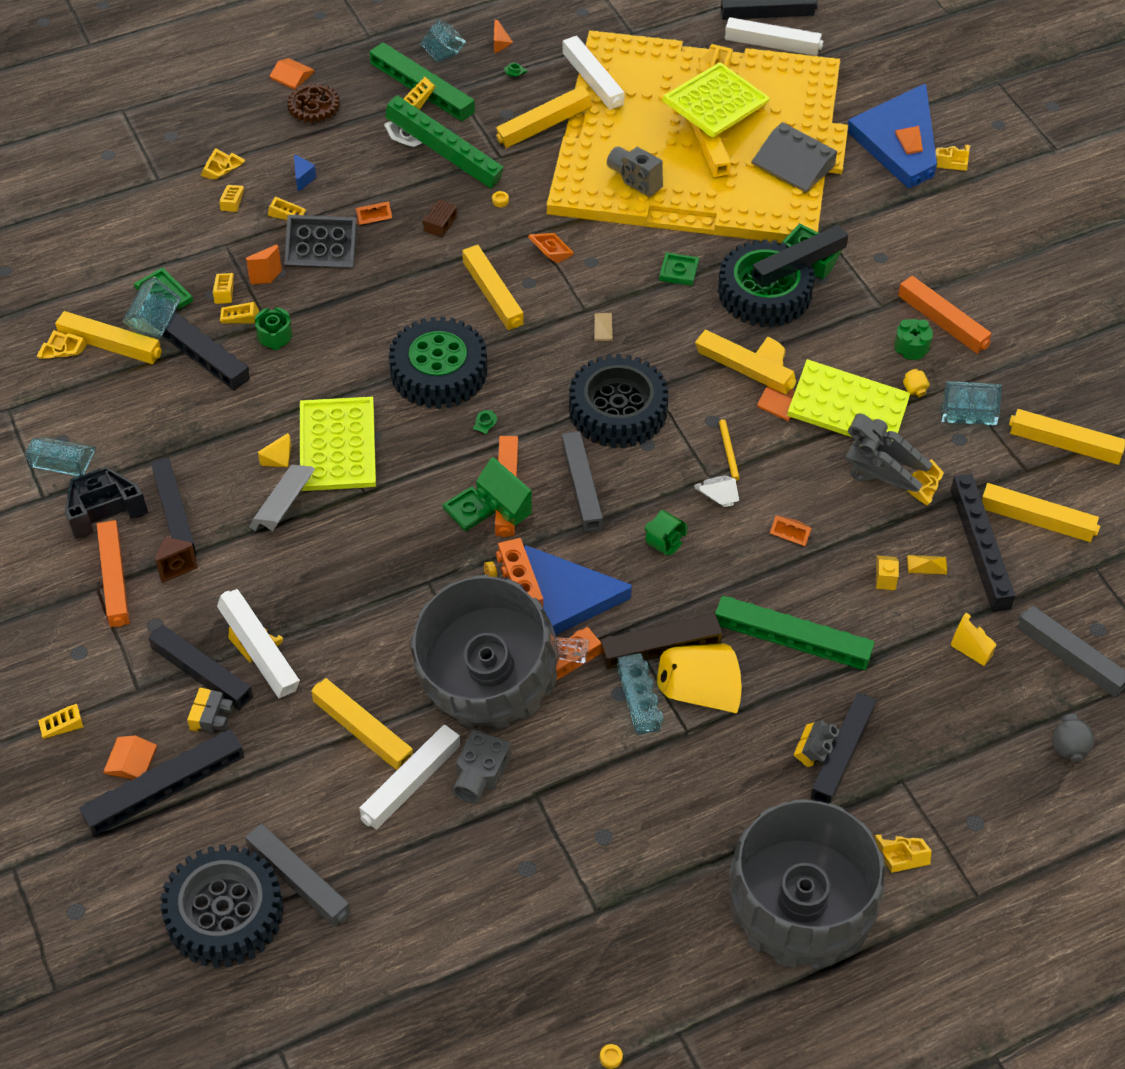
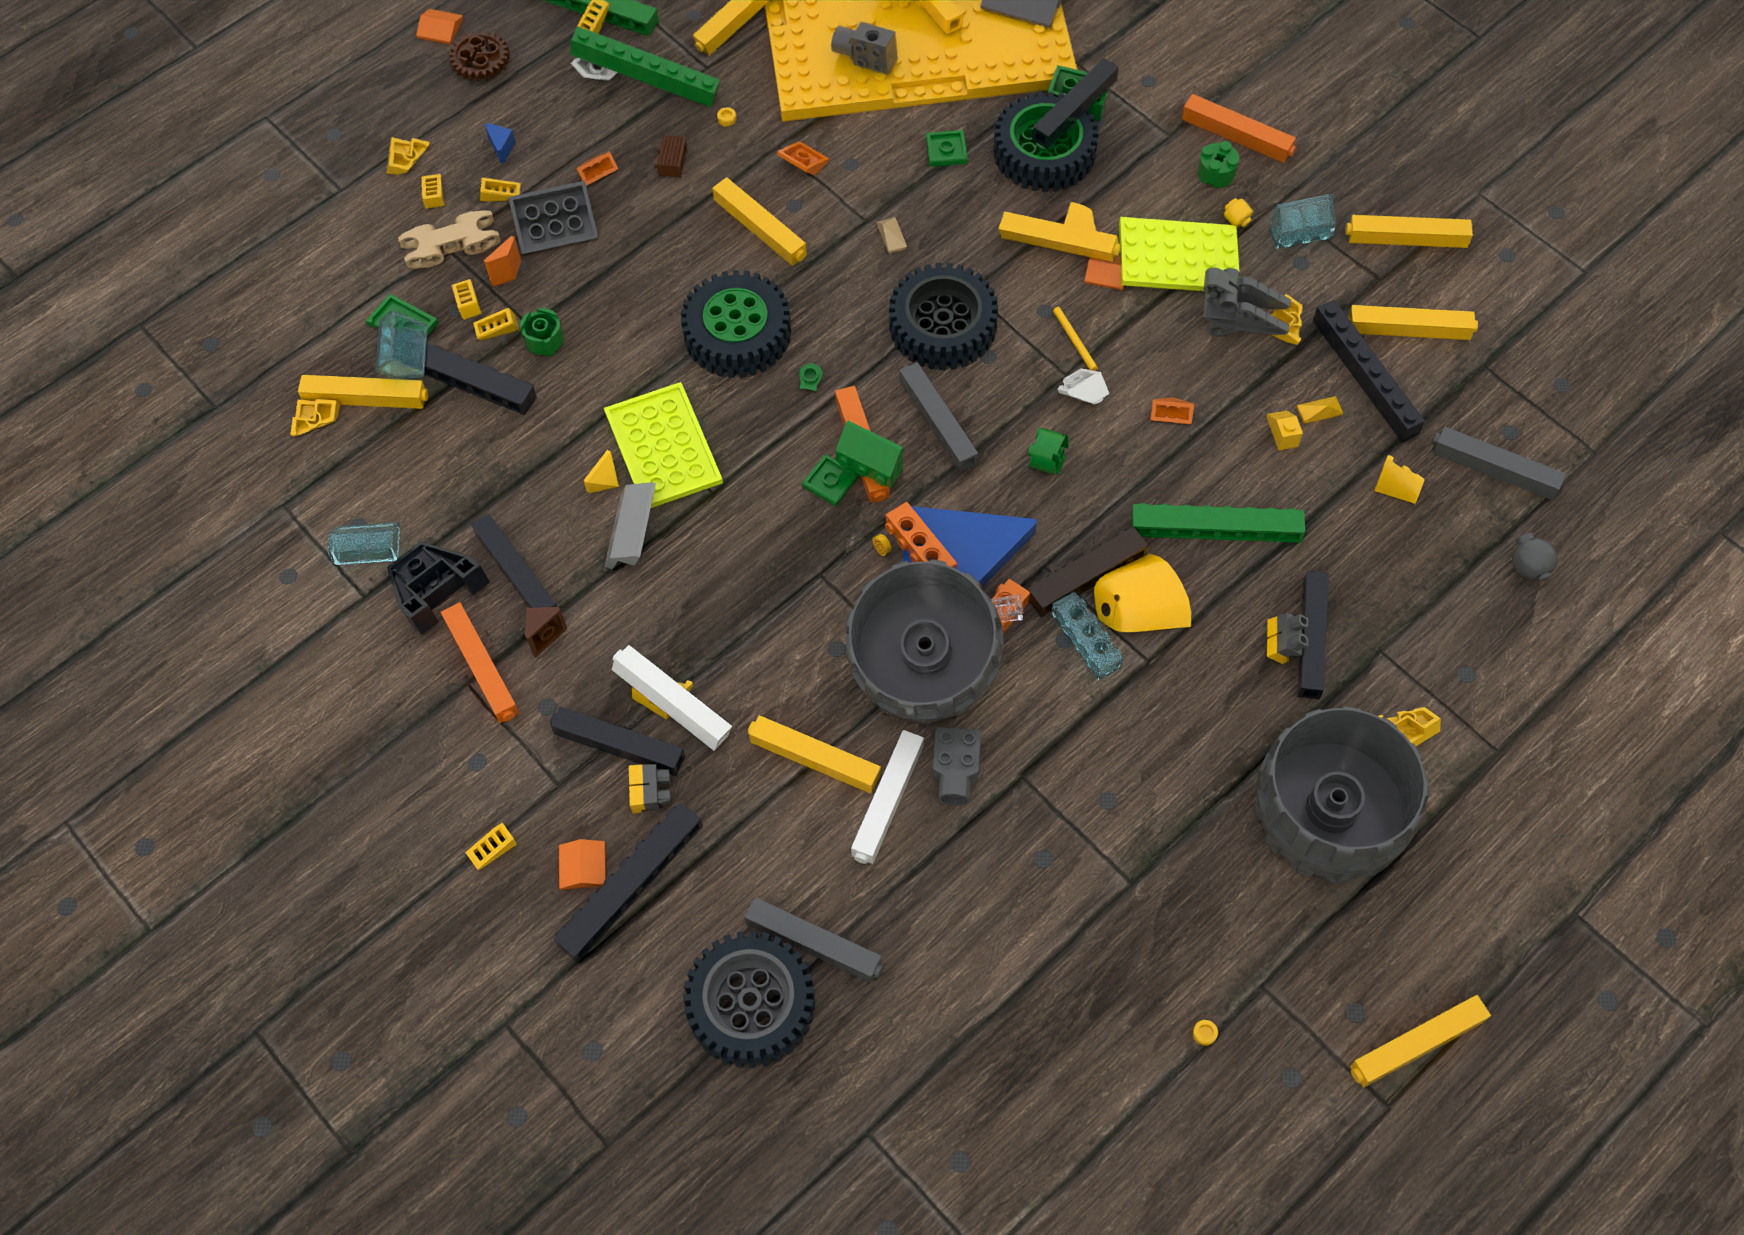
camera: 15 degrees left, 10 degrees up
(215, 238) = (463, 235): none -> tan piece

